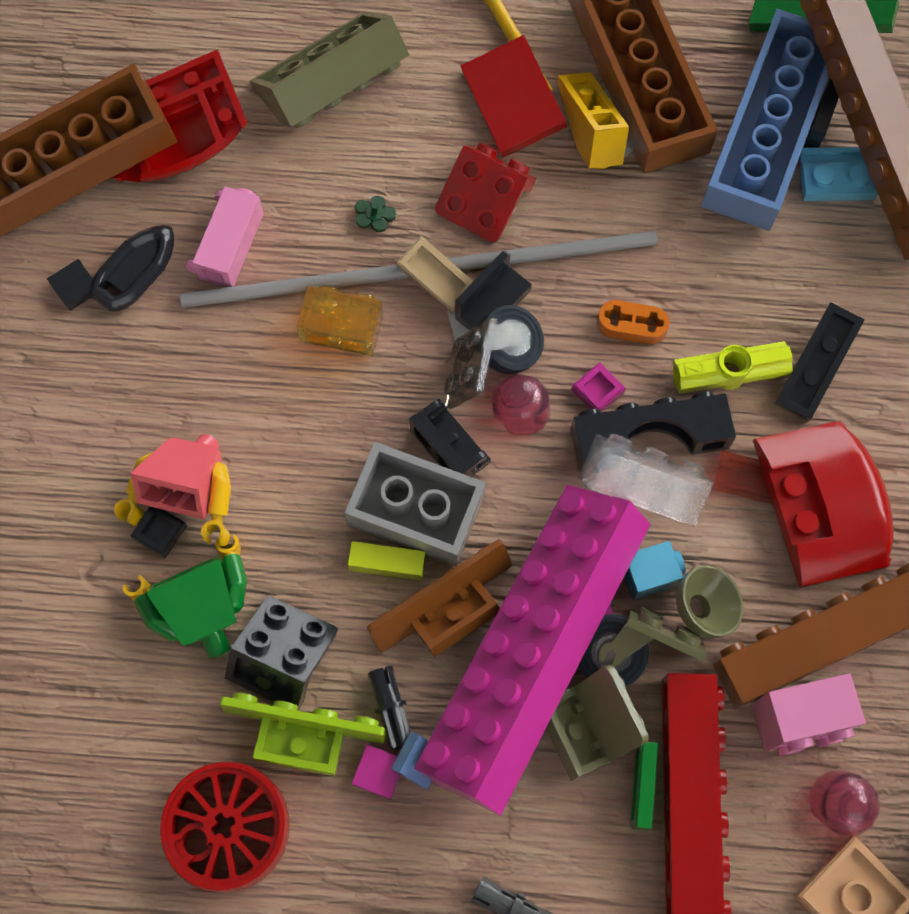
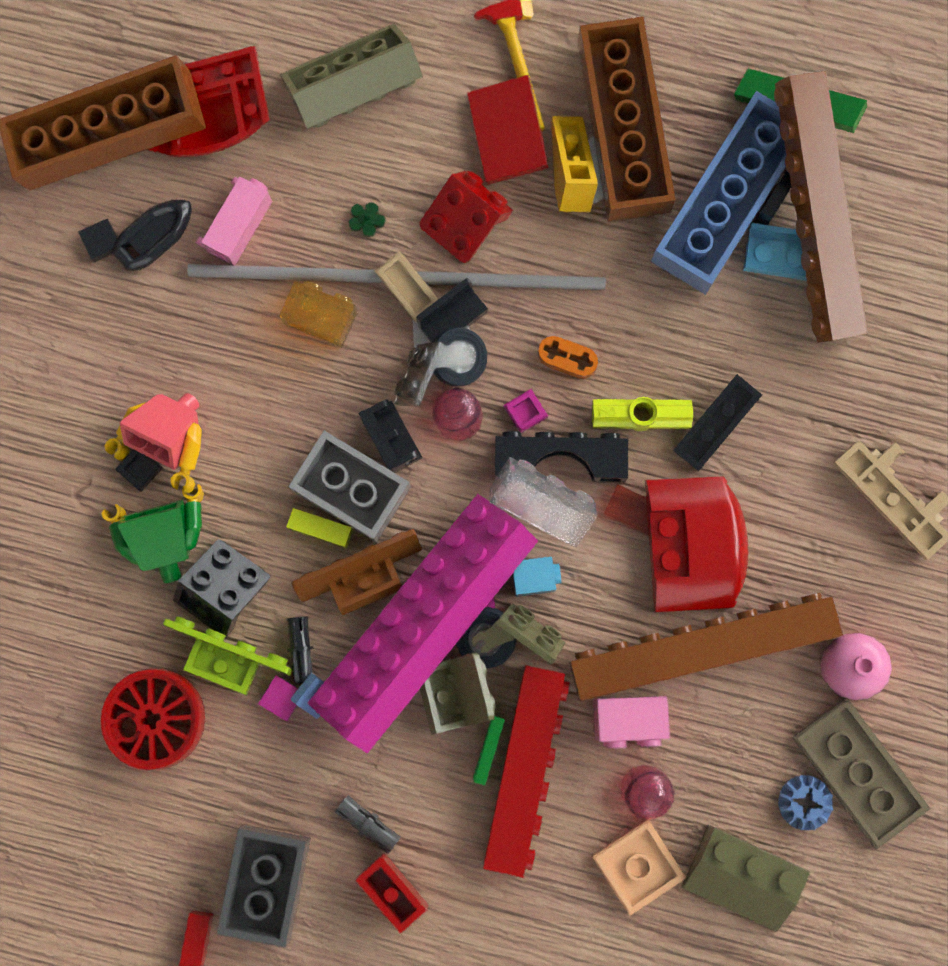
camera: 15 degrees right, 10 degrees up
(718, 597) = (585, 608): olive piece -> none

